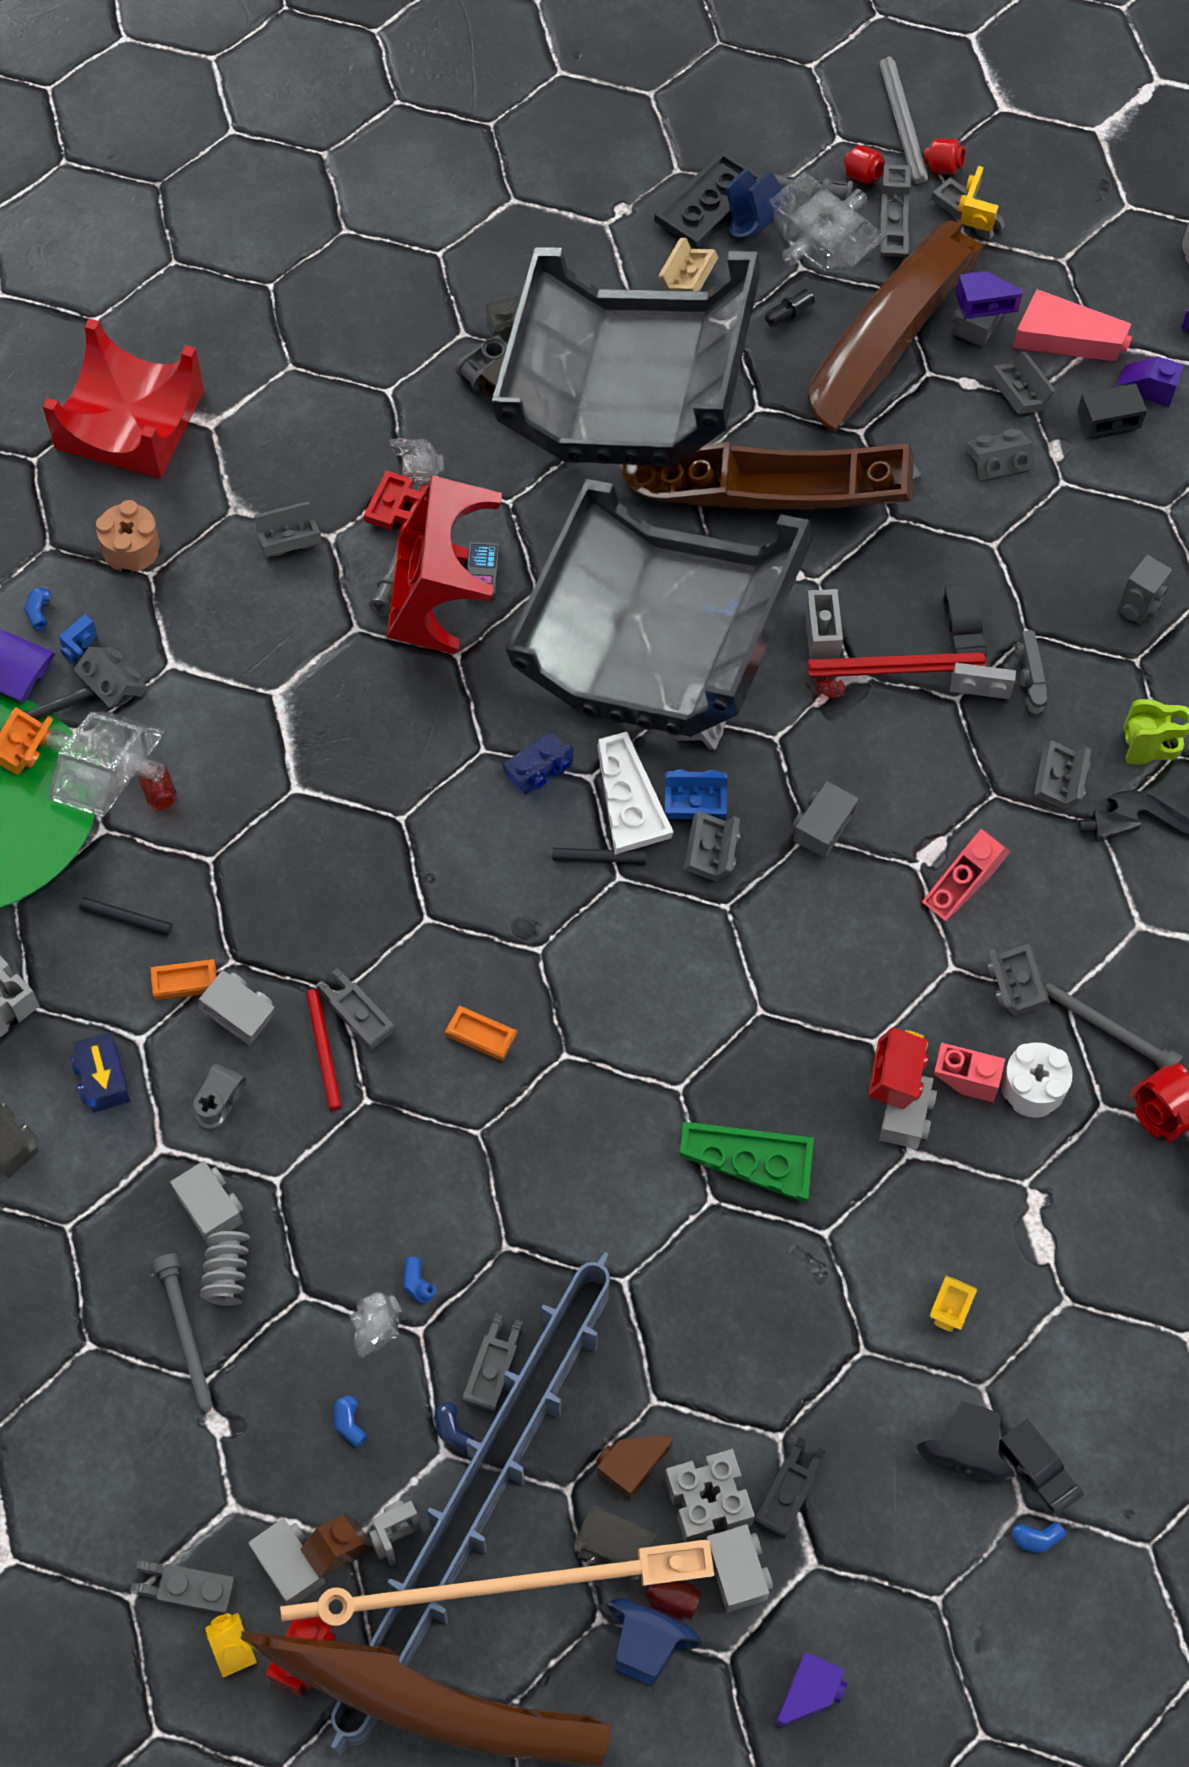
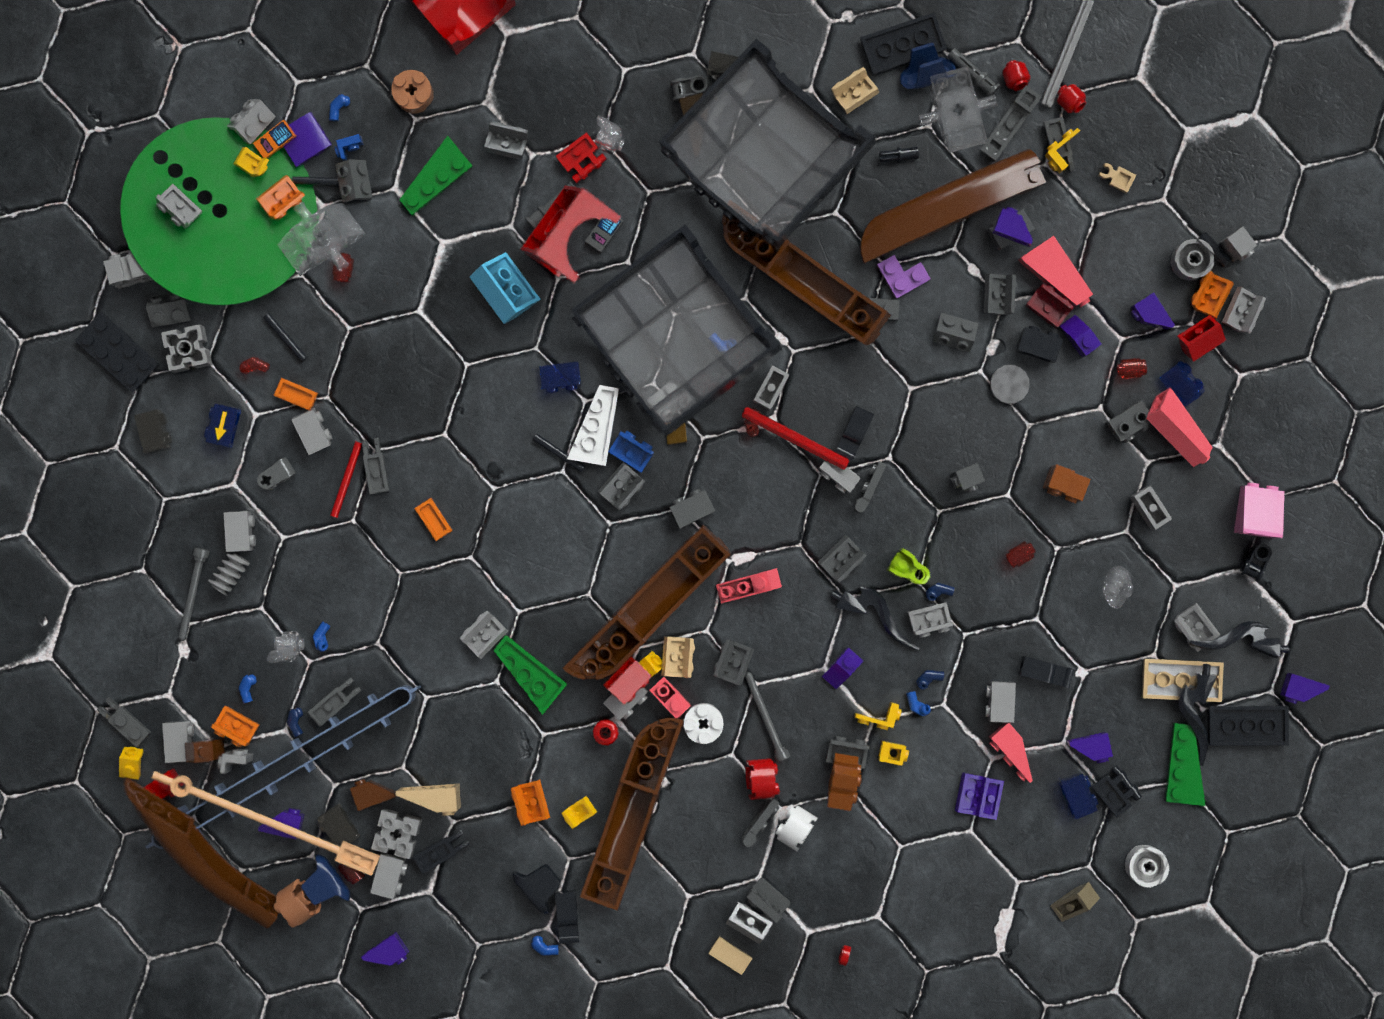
camera: 35 degrees right, 25 degrees up
(99, 972) = (252, 364): none -> clear red arm
(219, 620) = (437, 175): none -> green wing
(363, 1485) = (235, 726): none -> orange bracket
(393, 697) = (504, 287): none -> medium azure slope
(524, 1602) = (290, 817): none -> dark purple slope
(625, 1695) = (295, 904): none -> nougat brick
(651, 1139) = (483, 634): none -> light grey bracket
(732, 1404) = (434, 797): none -> tan slope
(739, 746) = (677, 436): none -> pearl gold slope
(856, 967) = (649, 606): none -> reddish brown slope
(874, 1332) = (530, 802): none -> orange bracket
(879, 432) = (902, 281): none -> medium lavender plate
(912, 1168) = (598, 732): none -> red head
(940, 1014) = (677, 657): none -> tan bracket
(1031, 1259) = (631, 813): none -> reddish brown slope
(1064, 205) = (1120, 179): none -> tan plate
(1089, 364) = (1050, 305): none -> dark red bracket
(1109, 475) = (1009, 384): none -> flat silver tile
(1164, 904) = (842, 668): none -> dark purple slope

